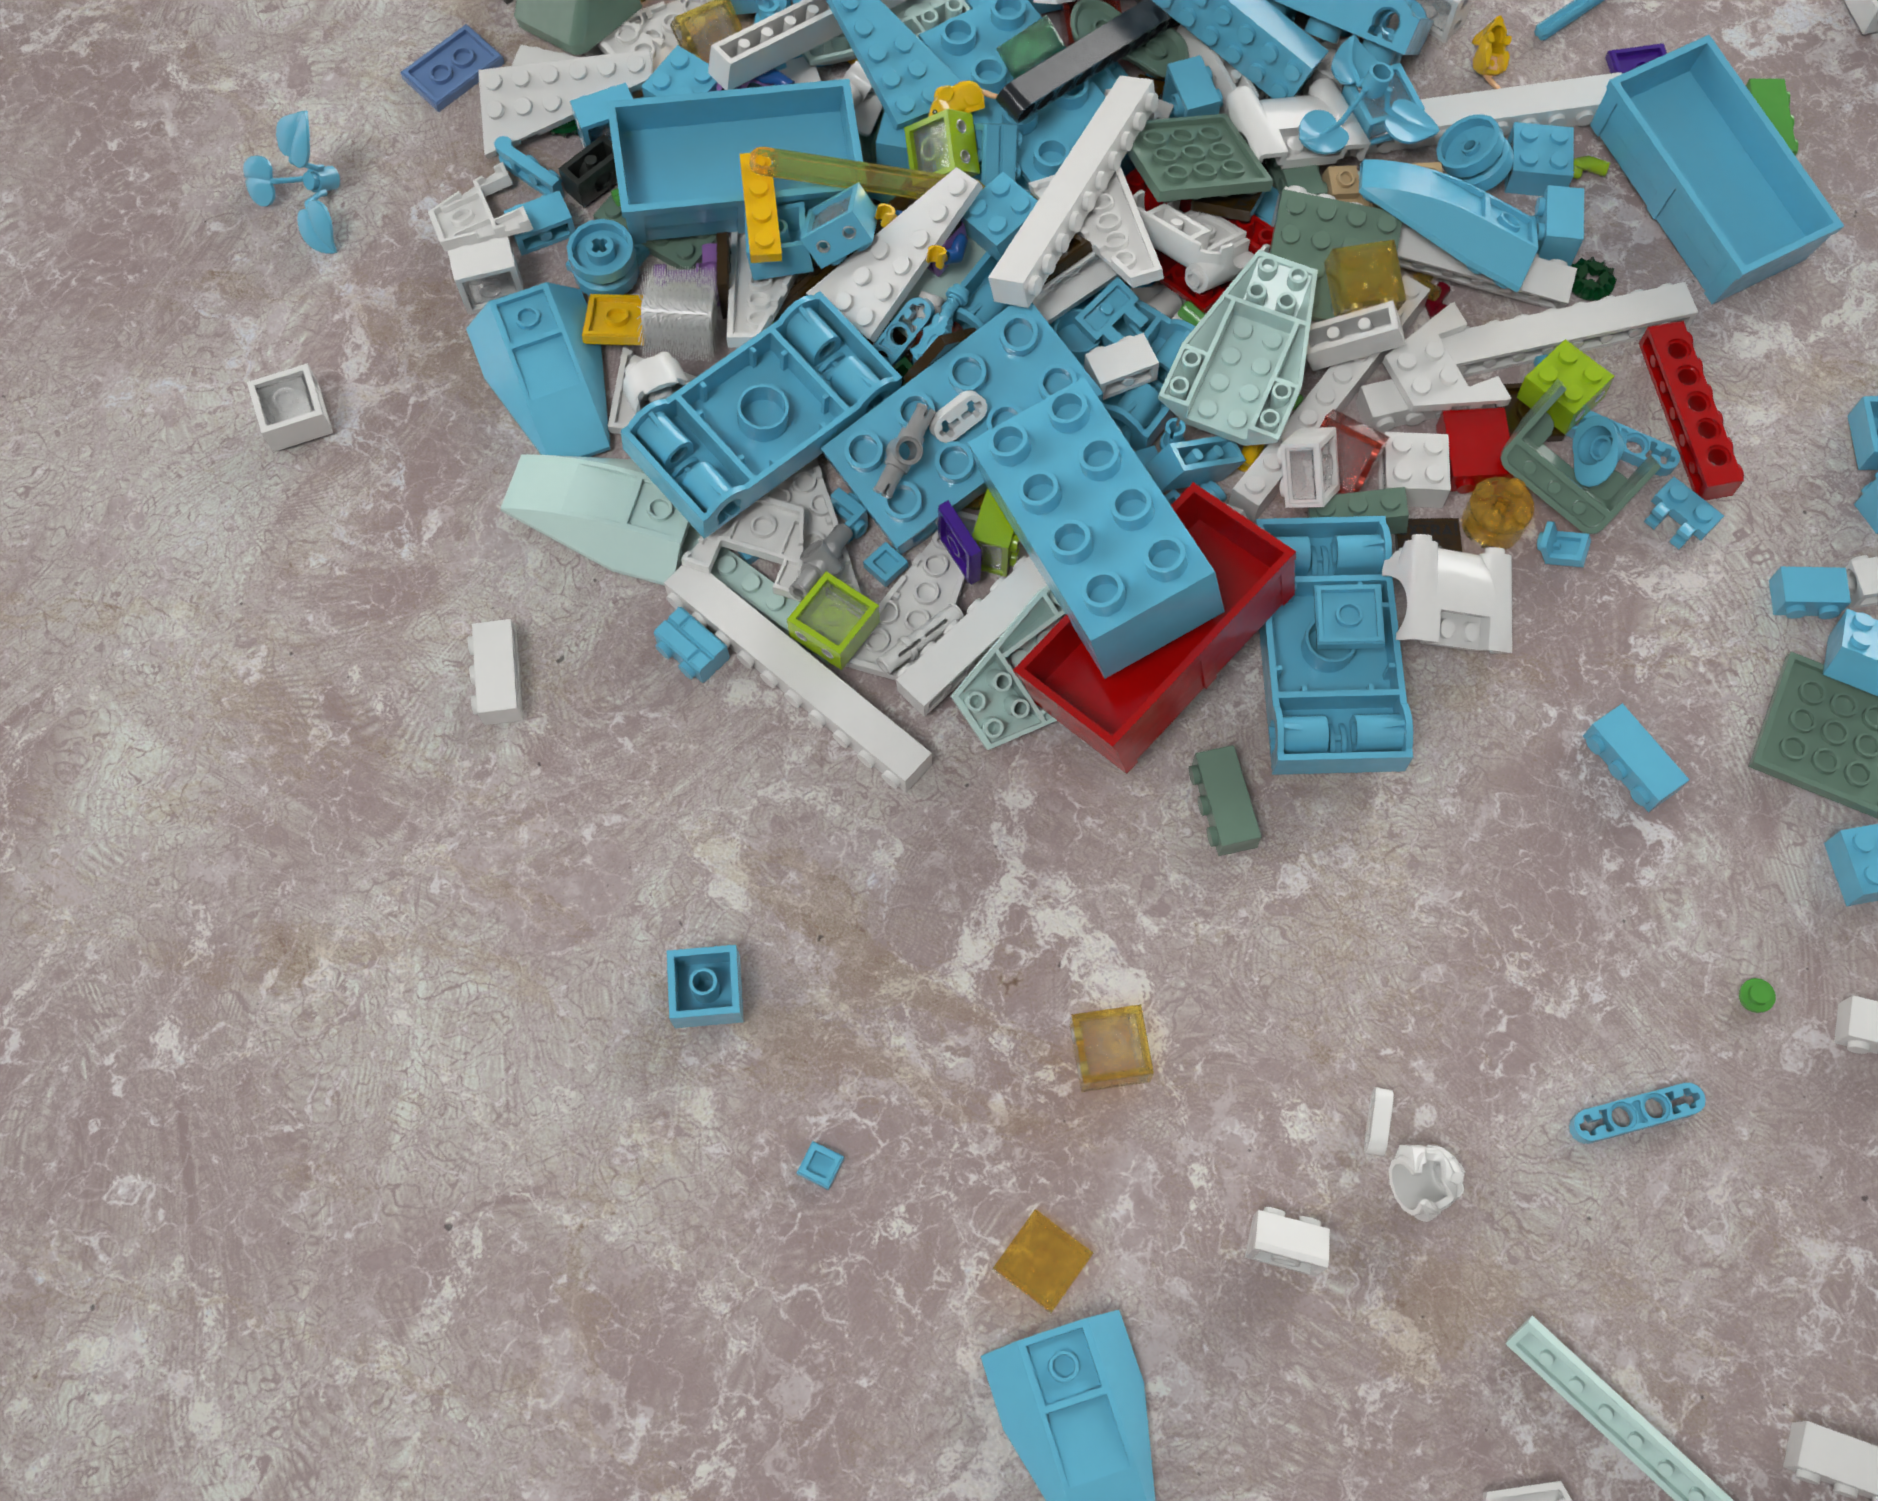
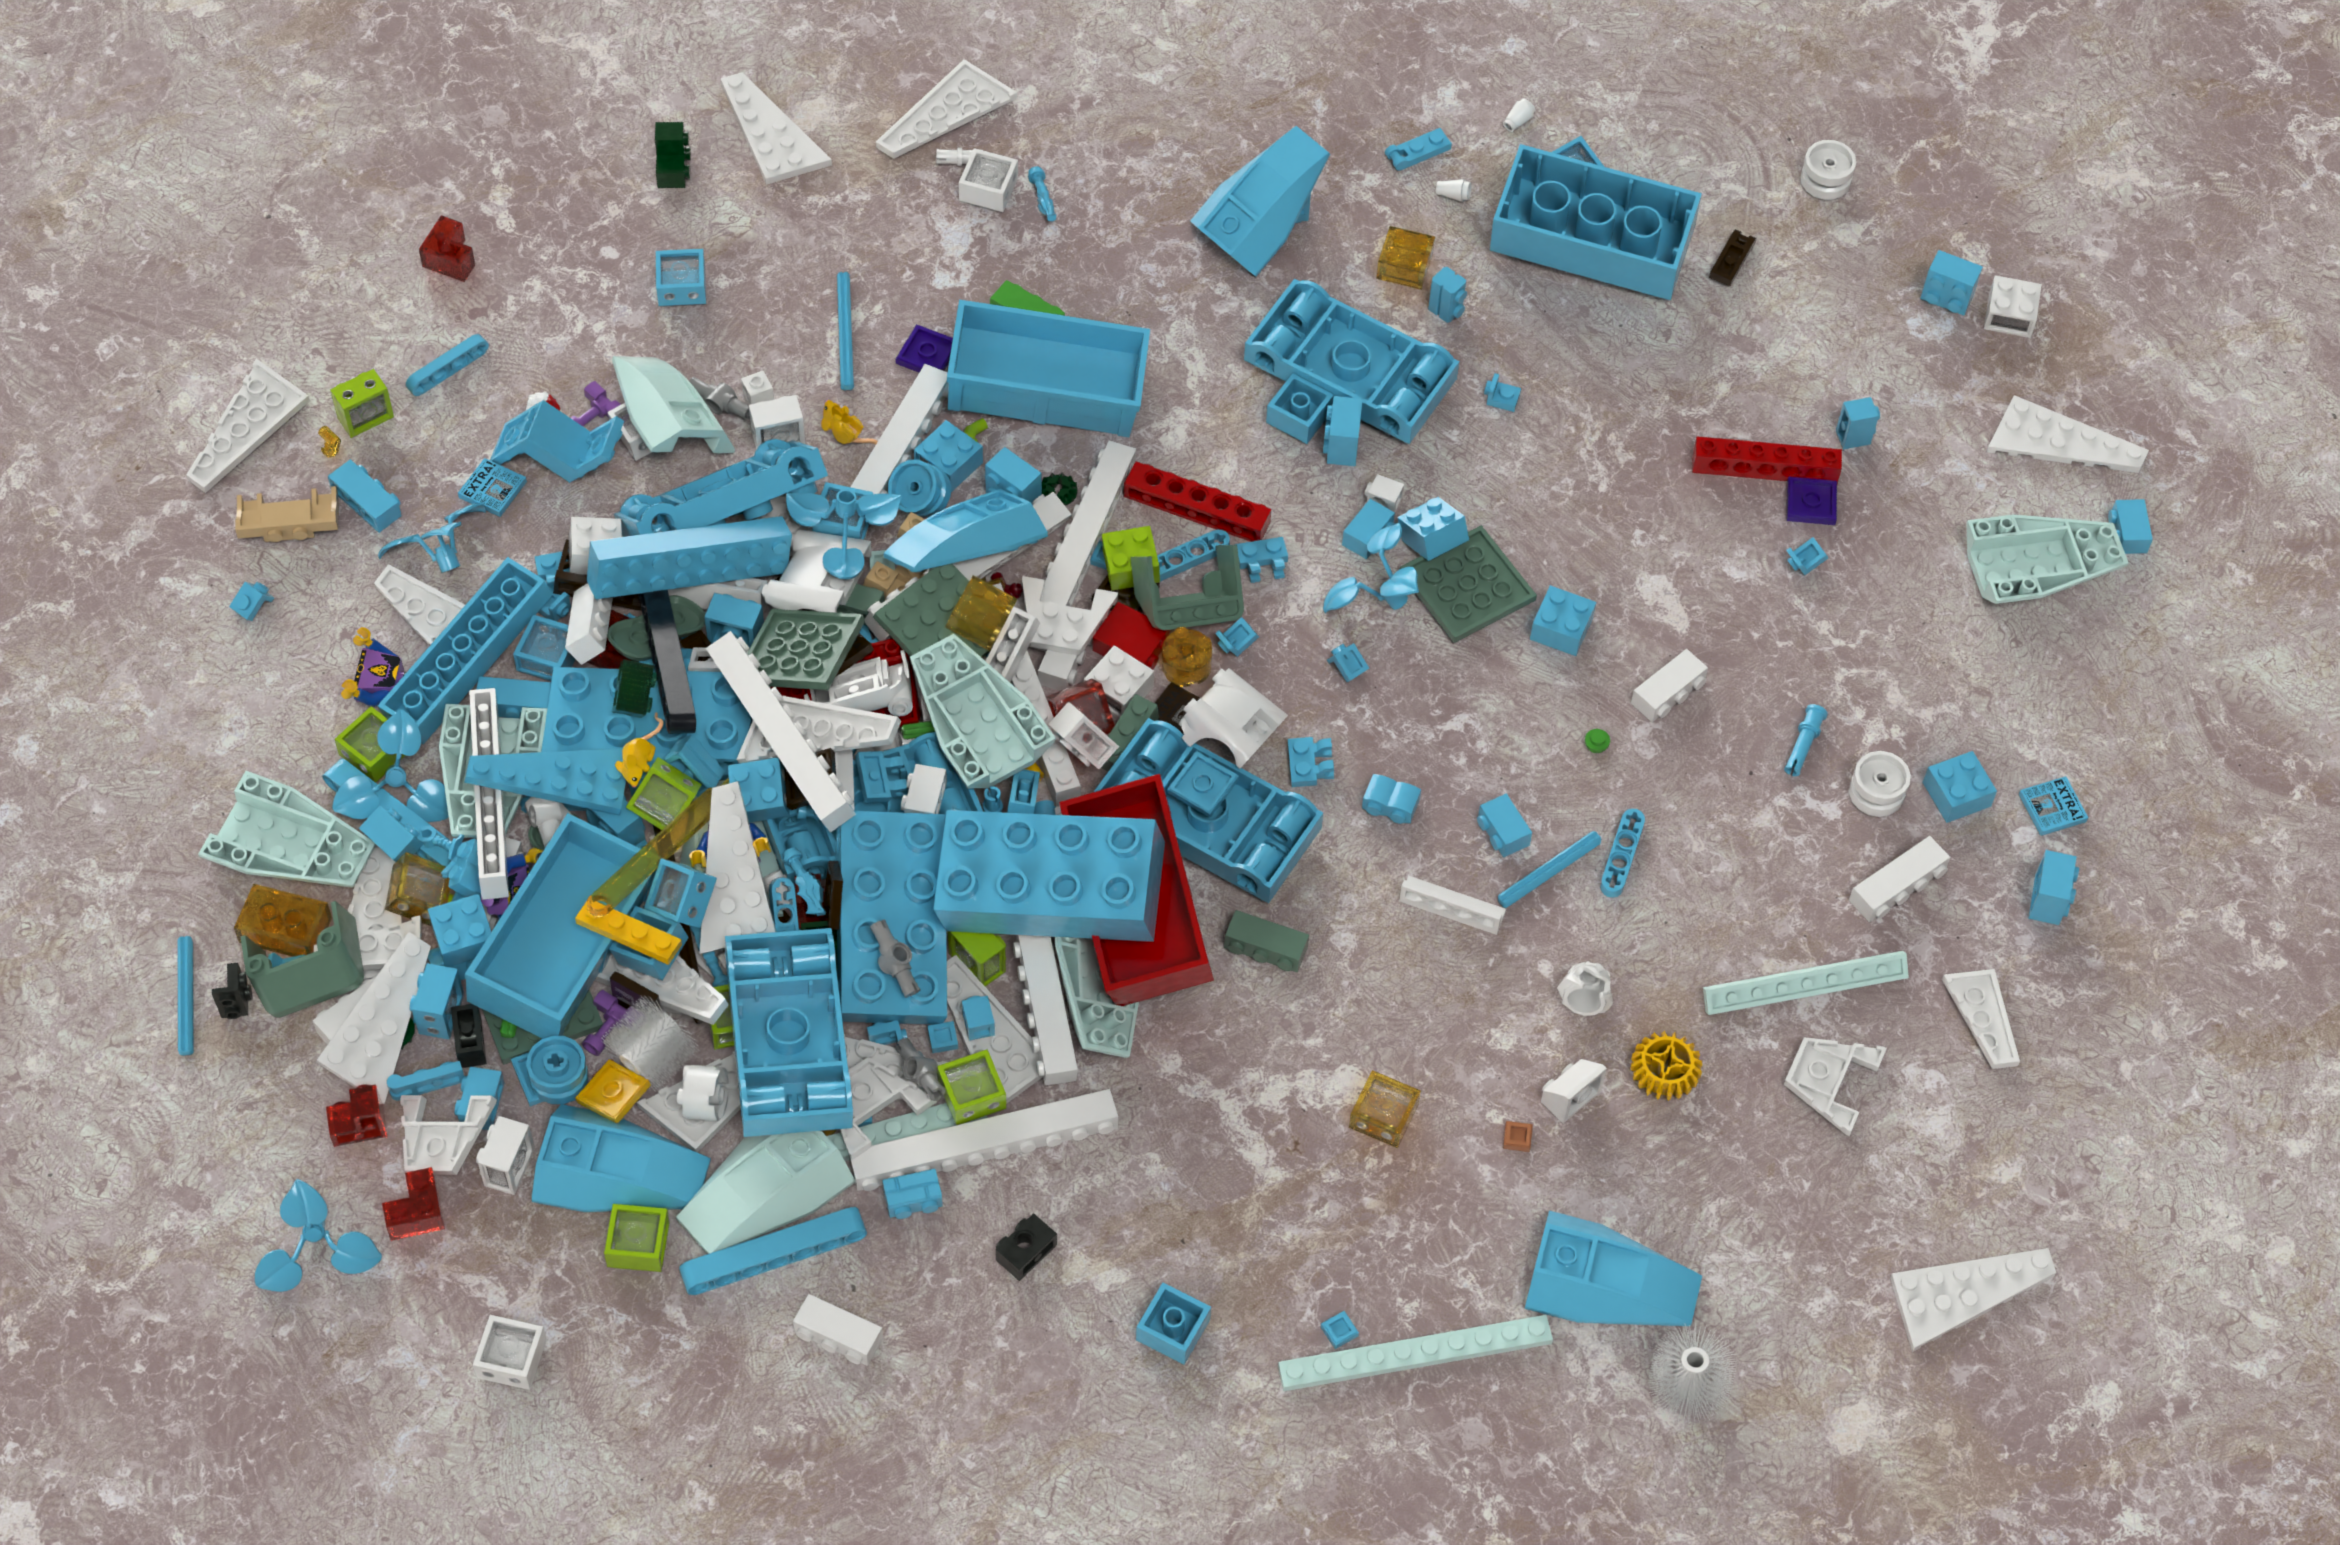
camera: 60 degrees left, 10 degrees down
(395, 247) = (418, 1212): none -> clear red brick
(451, 67) = (278, 1084): medium blue tile -> none
(452, 141) = (357, 1120): none -> clear red brick
(476, 435) = (637, 1237): none -> piece
(547, 562) = (772, 1251): none -> medium azure beam
(716, 800) = (1022, 1260): none -> pearl dark grey brick
(849, 1270) = (1415, 1353): none -> light aqua plate
(891, 660) = (1022, 1055): white pin -> none
(921, 578) = (978, 1017): none -> medium azure brick
(958, 416) = (895, 909): white beam -> none
(959, 543) = (974, 975): dark purple tile -> none
(1043, 1261) = (1489, 1236): clear yellow tile -> none
(1189, 1216) = (1517, 1136): none -> nougat tile
(1378, 1121) = (1532, 992): white beam -> none
(1406, 1349) = (1647, 1060): none -> yellow gear
(1422, 965) = (1452, 905): none -> white fence
(1472, 703) = (1302, 761): none -> medium azure plate
(1498, 820) = (1391, 799): none -> medium azure brick
(1551, 1044) = (1549, 869): none -> medium azure axle
(1563, 959) = (1504, 825): none -> medium azure brick
(1596, 450) = (1189, 573): medium azure piece -> none
(1629, 673) = (1348, 661): none -> medium azure bracket
(1635, 758) = (1405, 697): medium azure brick -> none
(1755, 660) = (1393, 591): none -> medium azure plant

